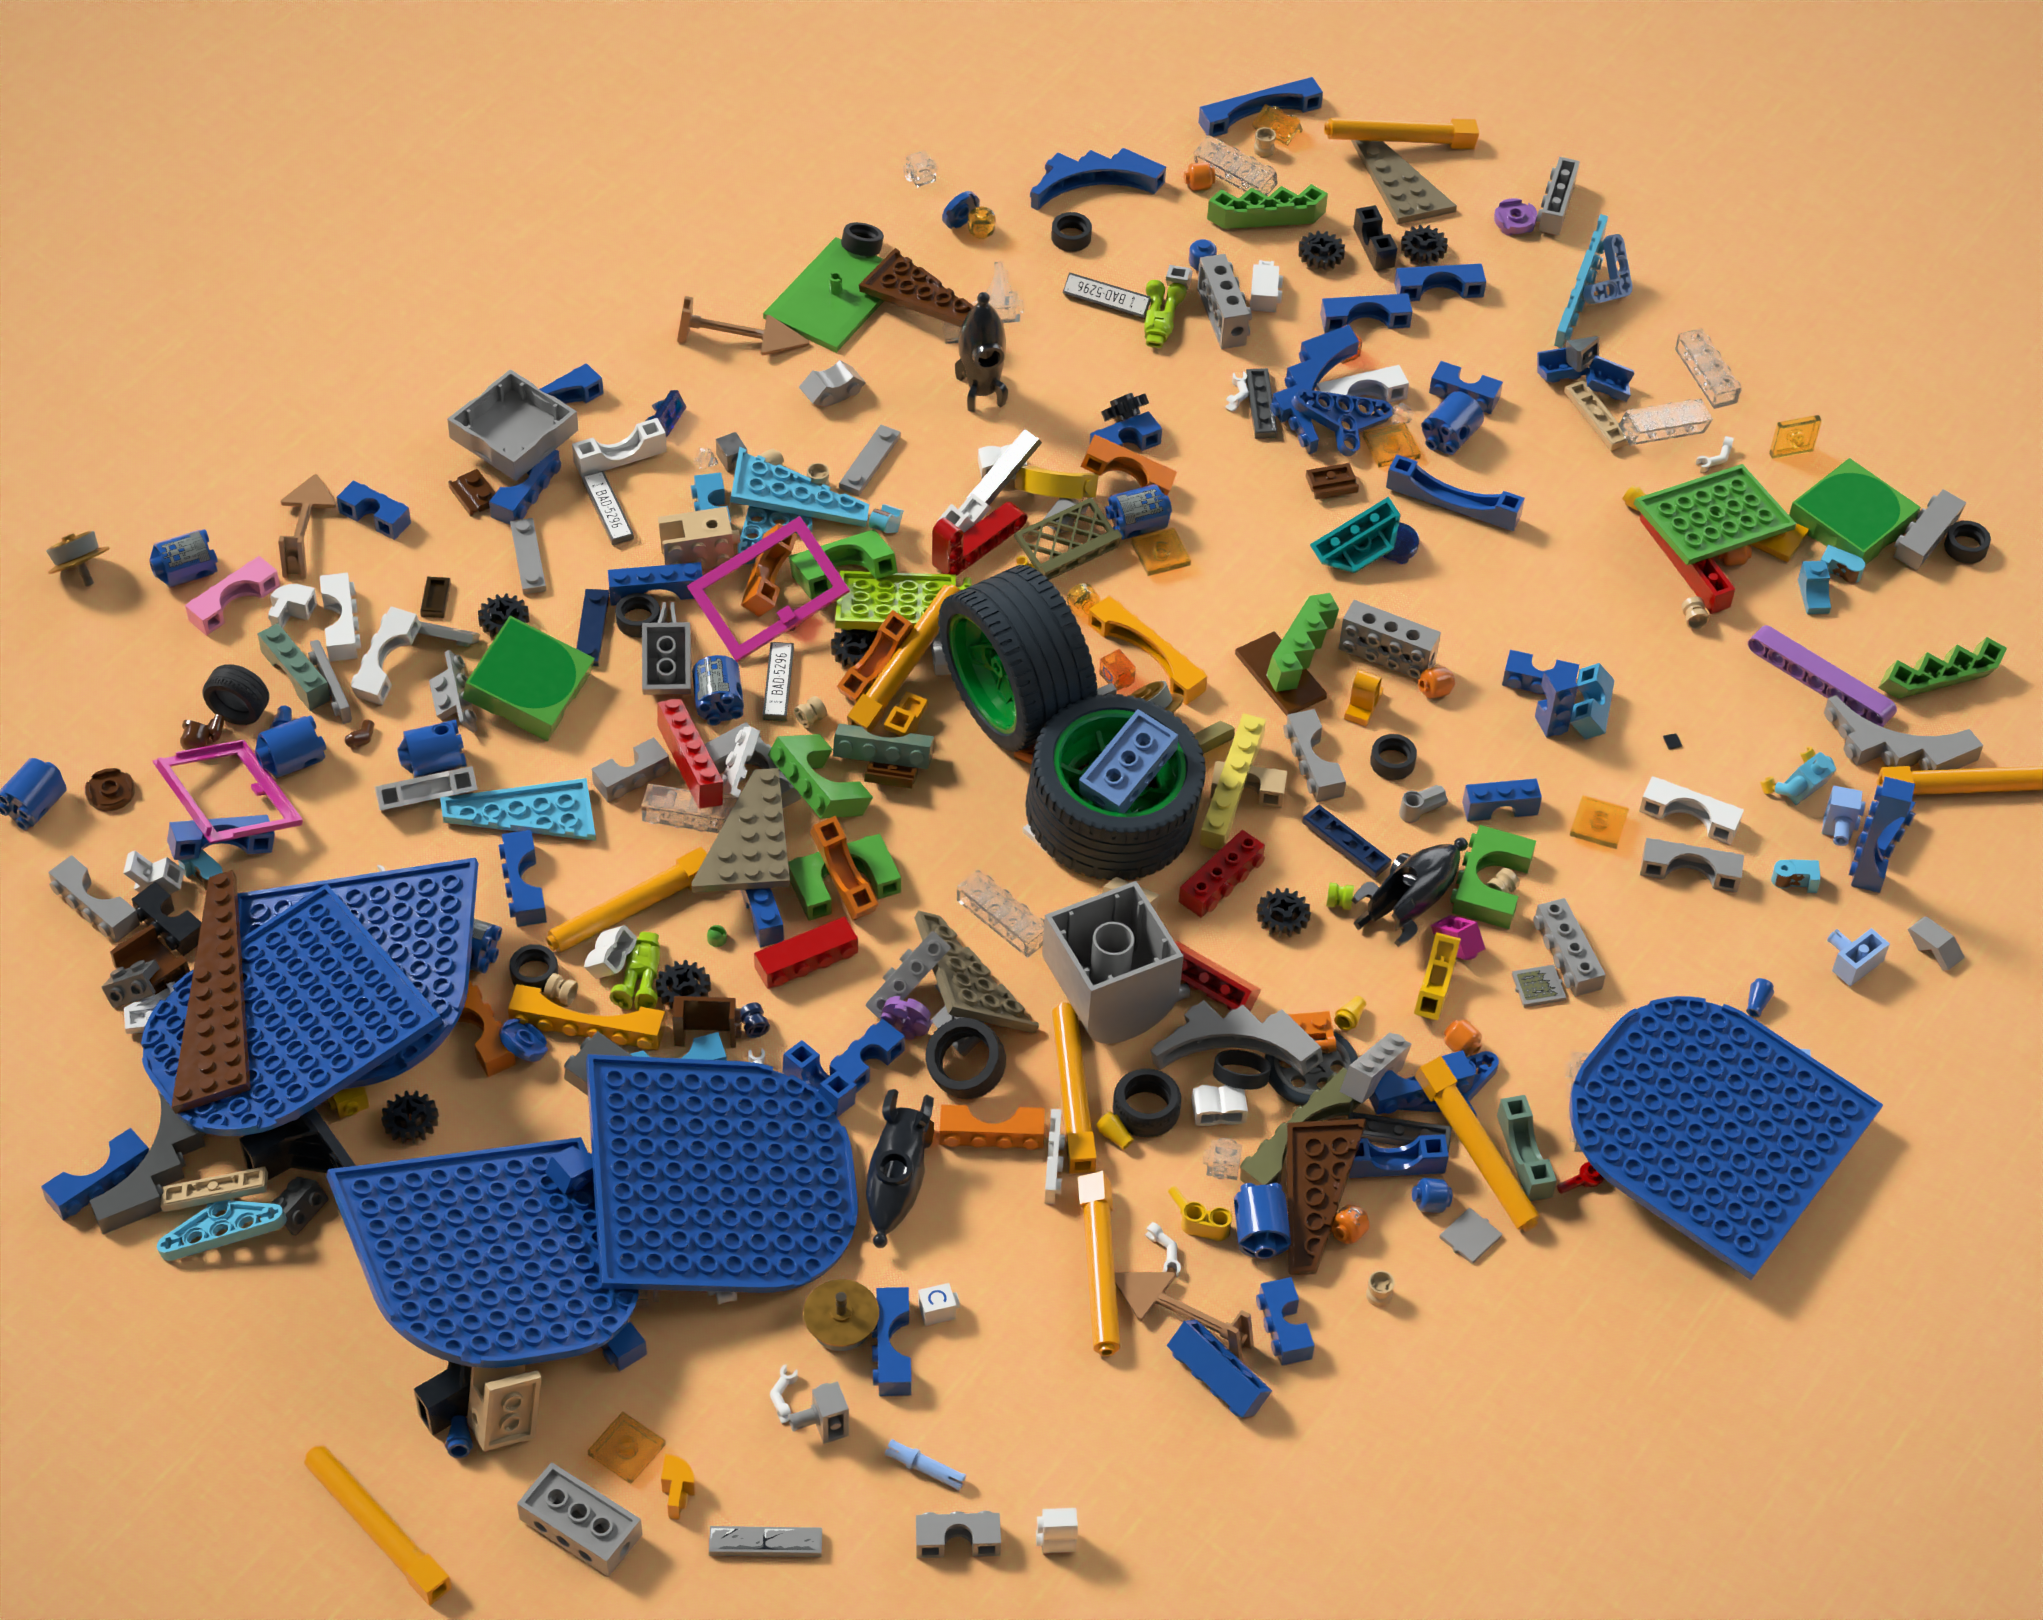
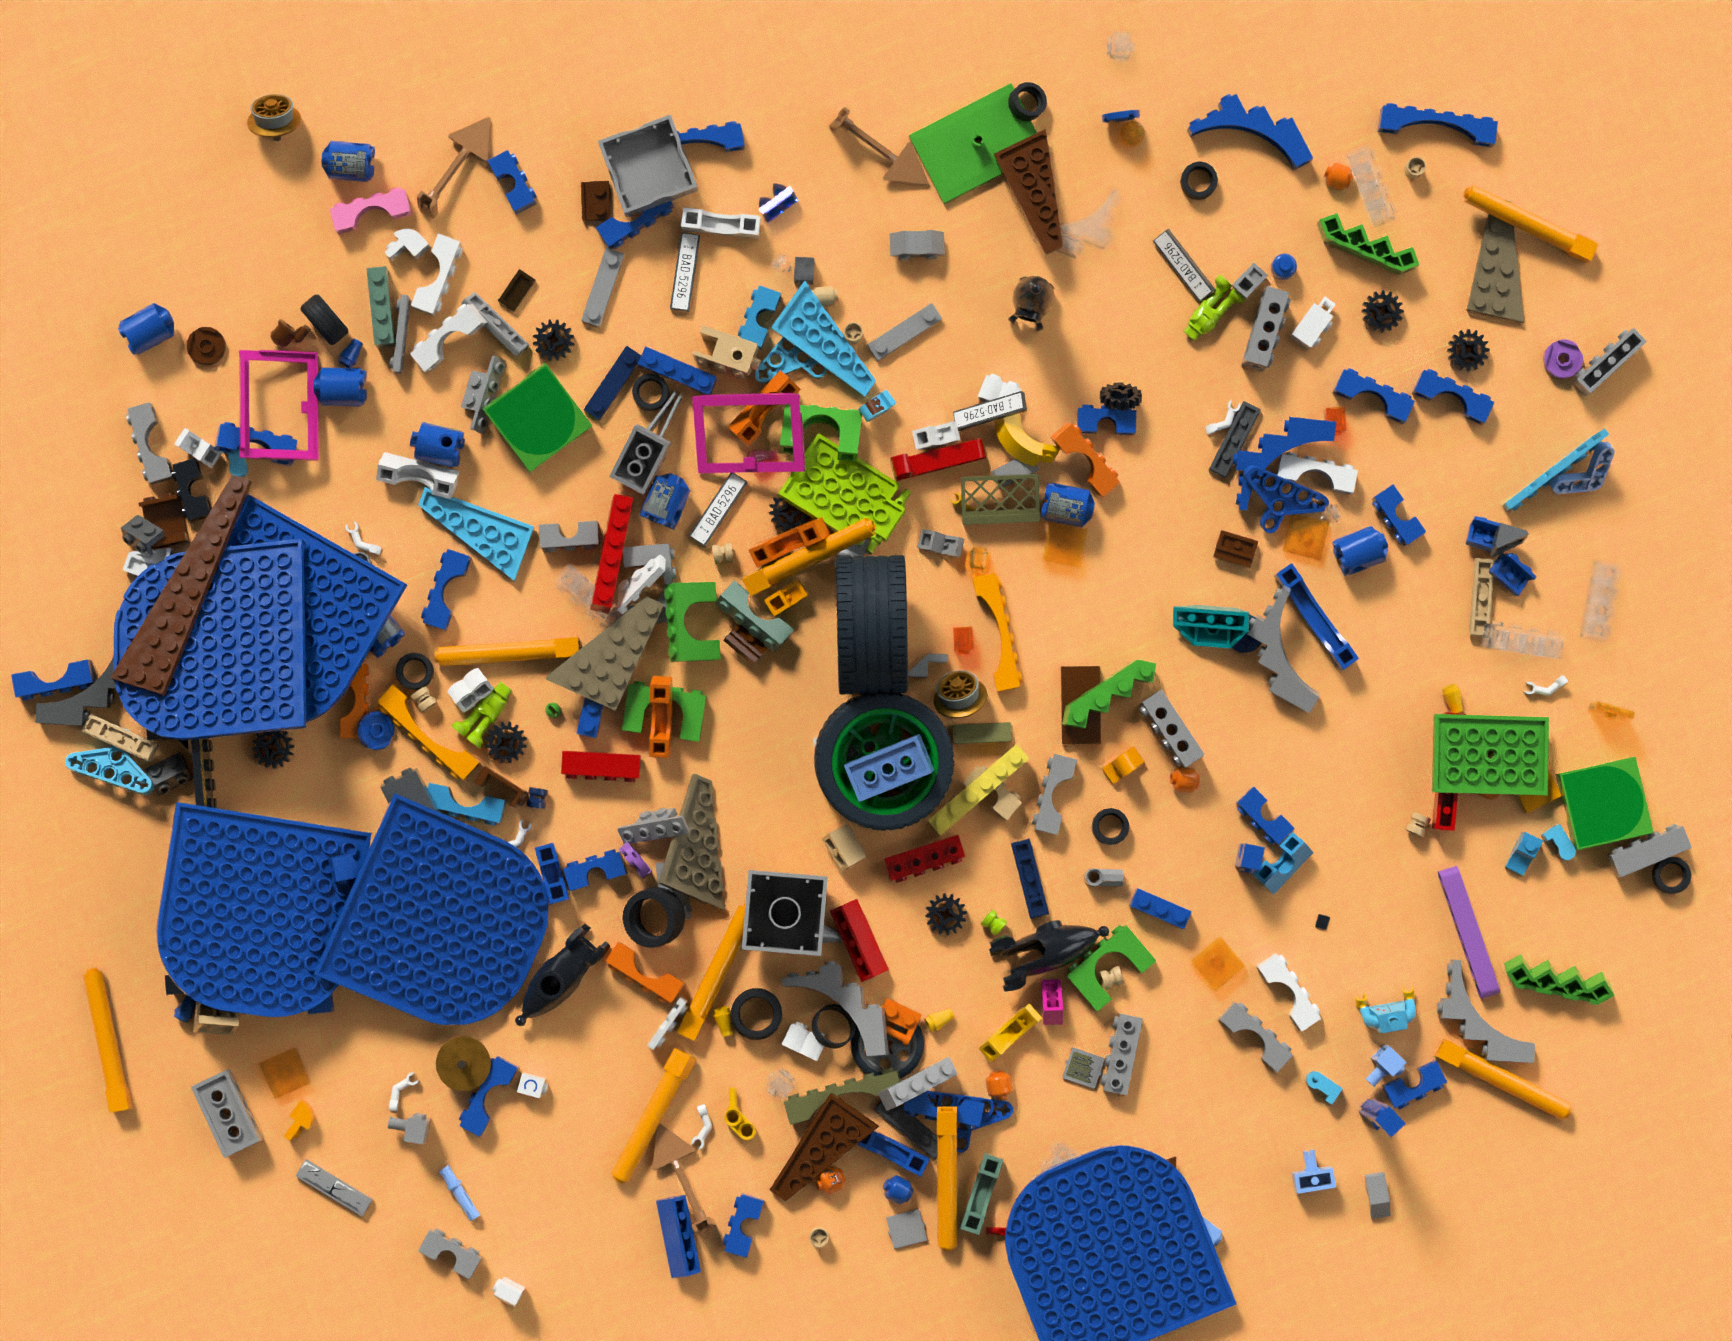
camera: 30 degrees right, 35 degrees up
(362, 736) = (399, 396): reddish brown arm -> none
(1001, 912) = (752, 807): clear brick -> none
(1262, 1220) = (771, 1151): blue cylinder -> none
(1282, 124) = (1439, 153): clear yellow bracket -> none
(1378, 247) = (1430, 323): black arch -> none
(1439, 538) = (1286, 682): none -> light grey arch
(1759, 996) = (1225, 1165): blue cone -> none

